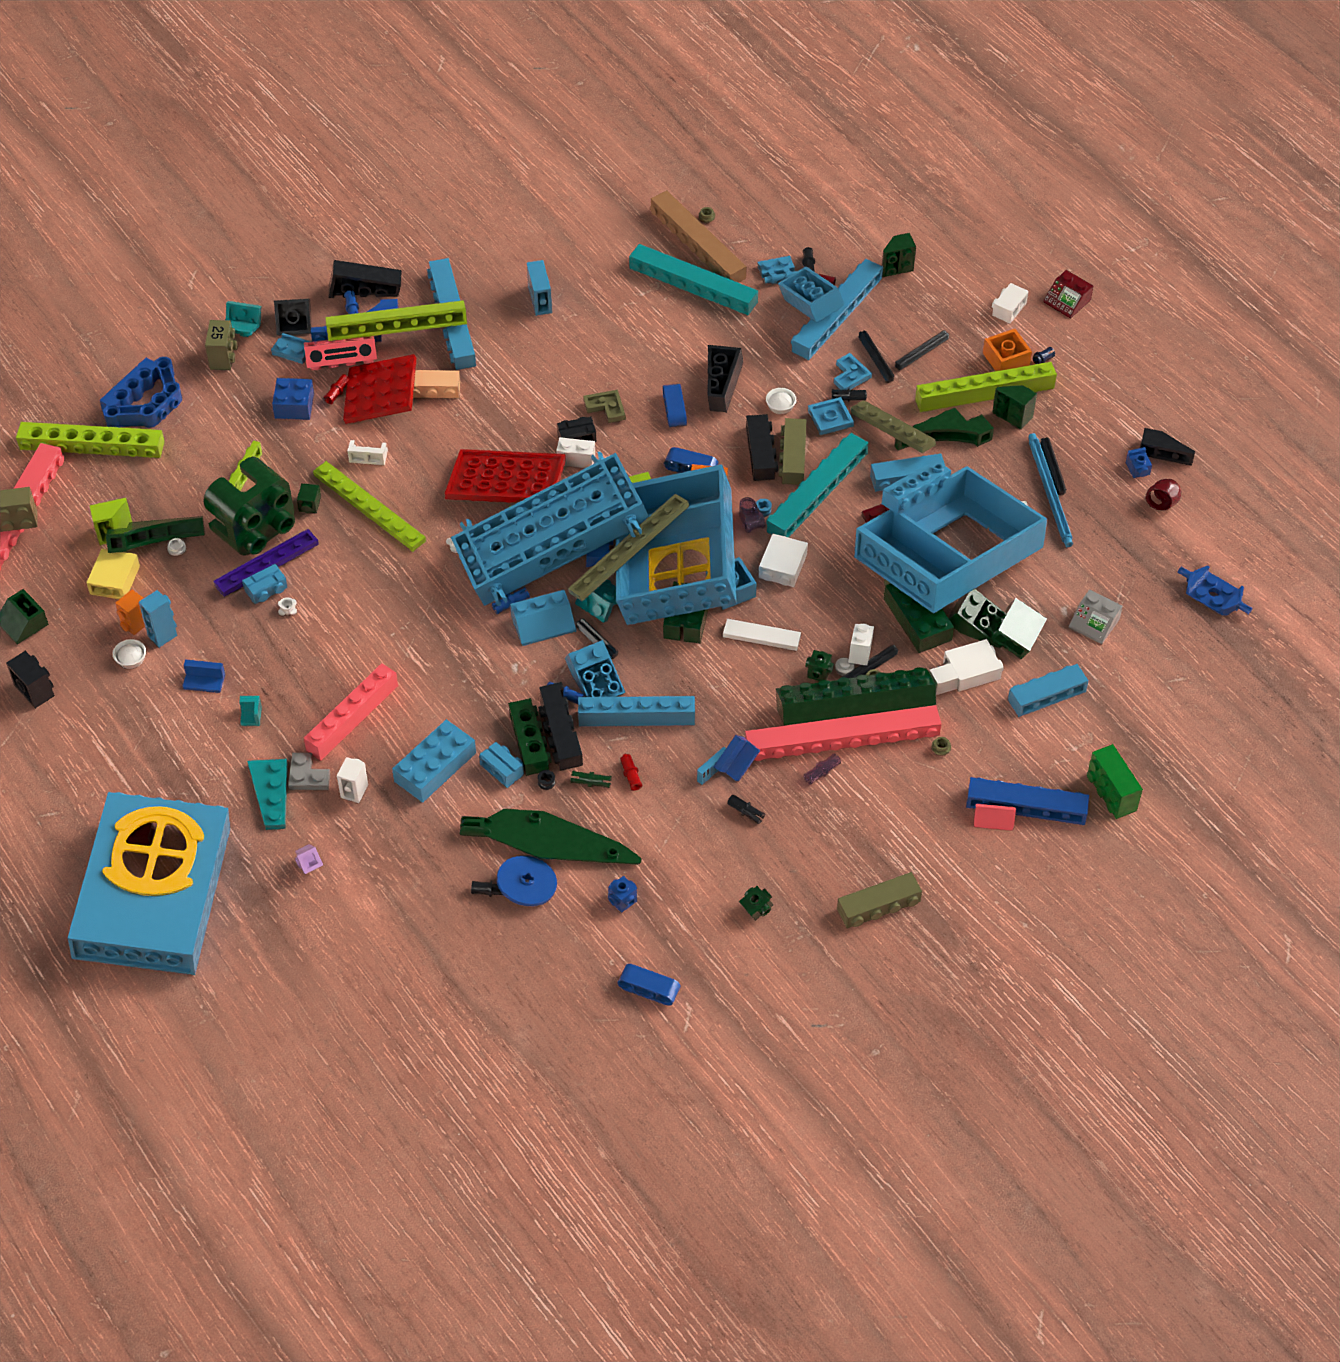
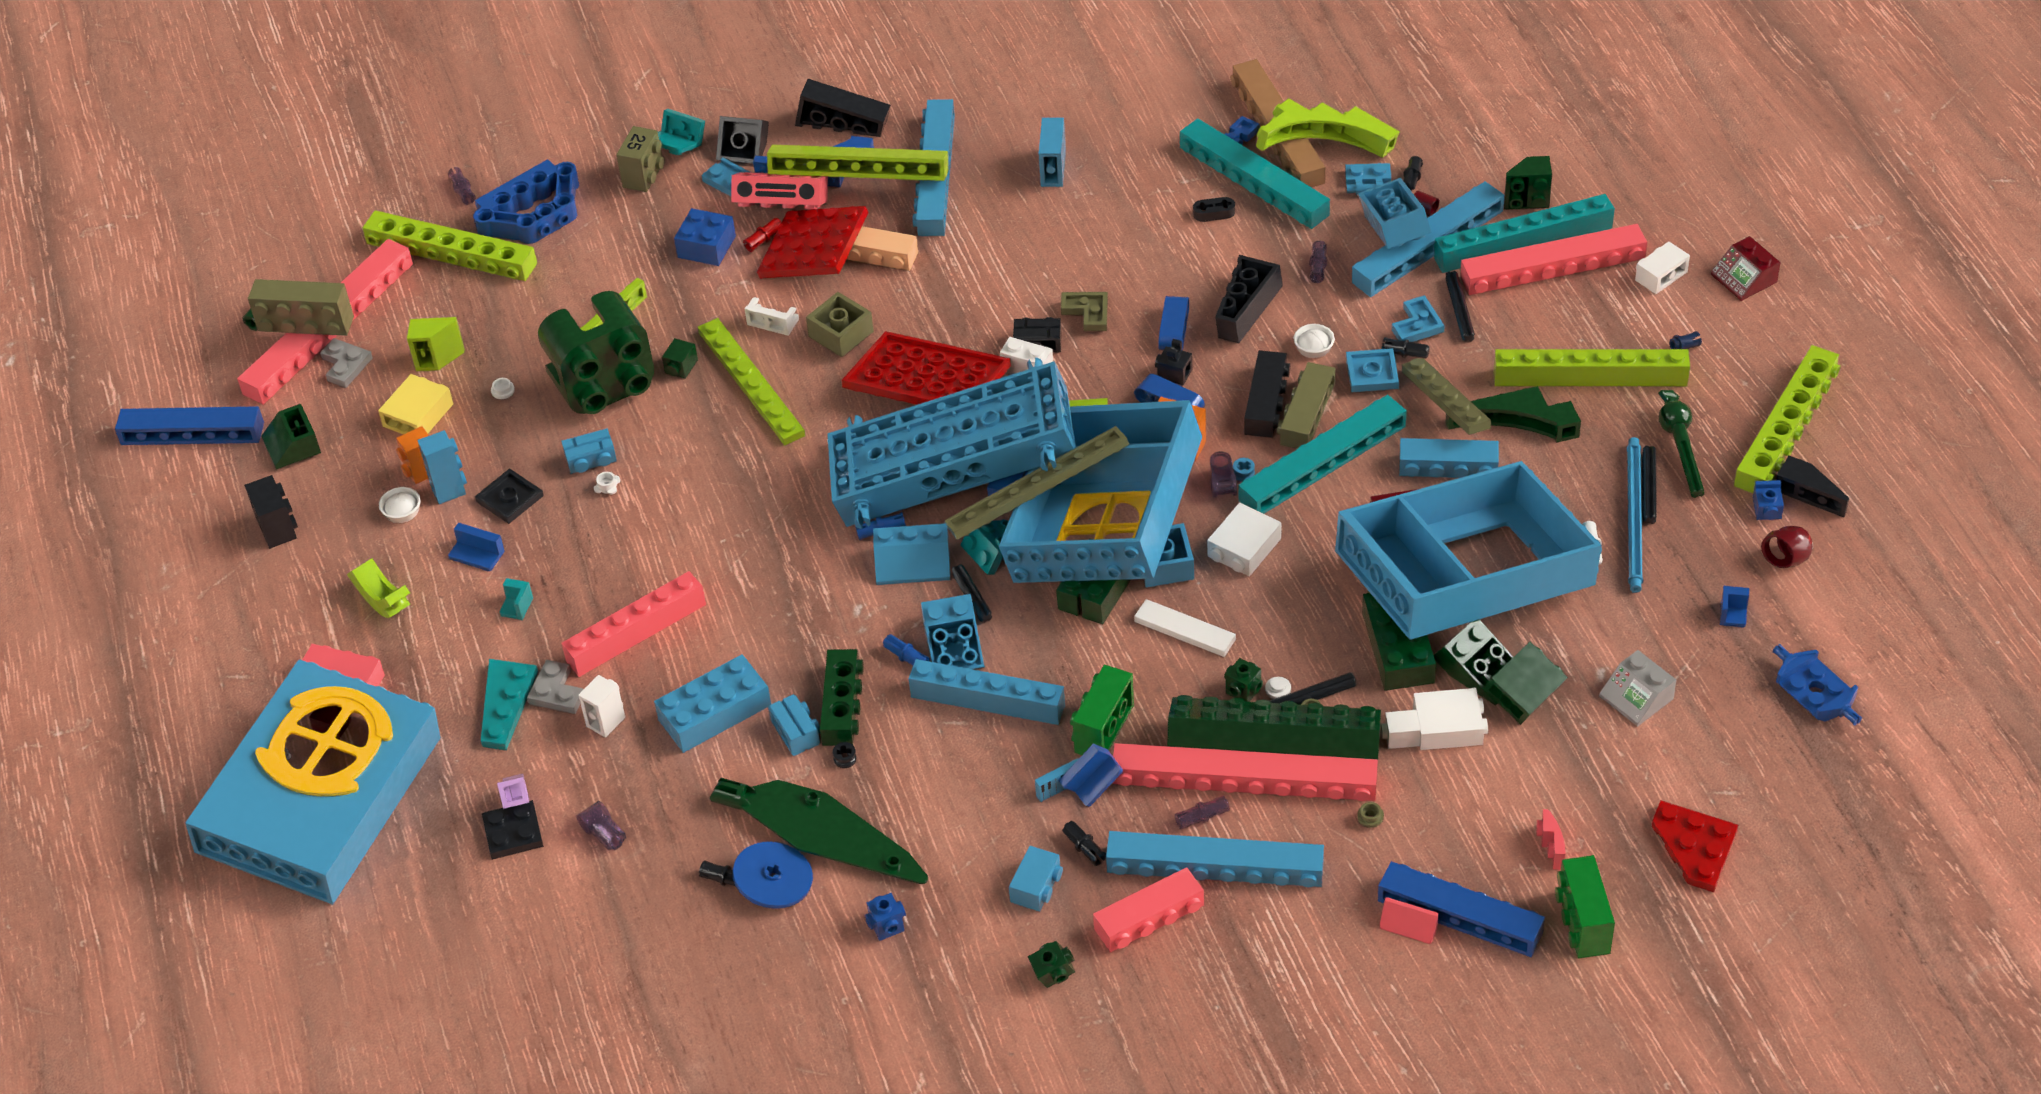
camera: 20 degrees right, 5 degrees down
(42, 545) = (348, 361): none -> light grey plate
(80, 389) = (461, 185): none -> pin
(139, 725) = (378, 590): none -> lime arch
(146, 787) = (347, 663): none -> coral brick
(153, 531) = (477, 365): dark green arch -> none
(213, 630) = (509, 496): none -> black tile
(278, 555) = (615, 420): dark purple plate -> none
(314, 889) = (512, 830): none -> black plate
(351, 305) = (818, 137): blue pin -> none
(379, 868) = (598, 821): none -> clear purple piece
(424, 450) = (839, 324): none -> olive brick
(559, 727) = (881, 691): black wedge -> none
(591, 779) = (900, 765): dark green pin -> none
(631, 772) = (953, 767): red axle -> none
(649, 984) = (878, 1038): blue beam -> none
(672, 312) = (1214, 209): none -> black beam
(673, 246) = (1243, 129): none -> blue plate
(686, 436) = (1174, 363): none -> black brick
(706, 214) = (1301, 96): olive plate -> none
(720, 842) = (1035, 878): none -> dark azure brick
(727, 709) = (1103, 709): none -> green brick
(734, 232) = (1324, 122): none -> lime arch
(763, 340) = (1318, 261): none -> pin
(810, 848) = (1148, 910): none -> coral brick
(844, 801) = (1215, 858): none -> dark azure brick
(861, 644) = (1306, 663): white brick -> none
(879, 900) = (1216, 995): olive brick -> none
(904, 293) = (1539, 227): none -> teal brick
(916, 487) = (1437, 473): dark azure brick -> none
(921, 350) = (1523, 308): black axle -> none
(931, 310) = (1553, 259): none -> coral brick
(1007, 351) = (1634, 325): orange brick -> none
(1014, 404) = (1620, 396): dark green slope -> none
(1047, 690) = (1539, 770): dark azure brick -> none
(1057, 414) = (1676, 418): none -> dark green piece
(1073, 736) = (1551, 837): none -> coral slope
(1132, 401) = (1788, 418): none -> lime brick
(1139, 544) = (1734, 606): none -> blue panel
(1169, 719) = (1695, 842): none -> red plate

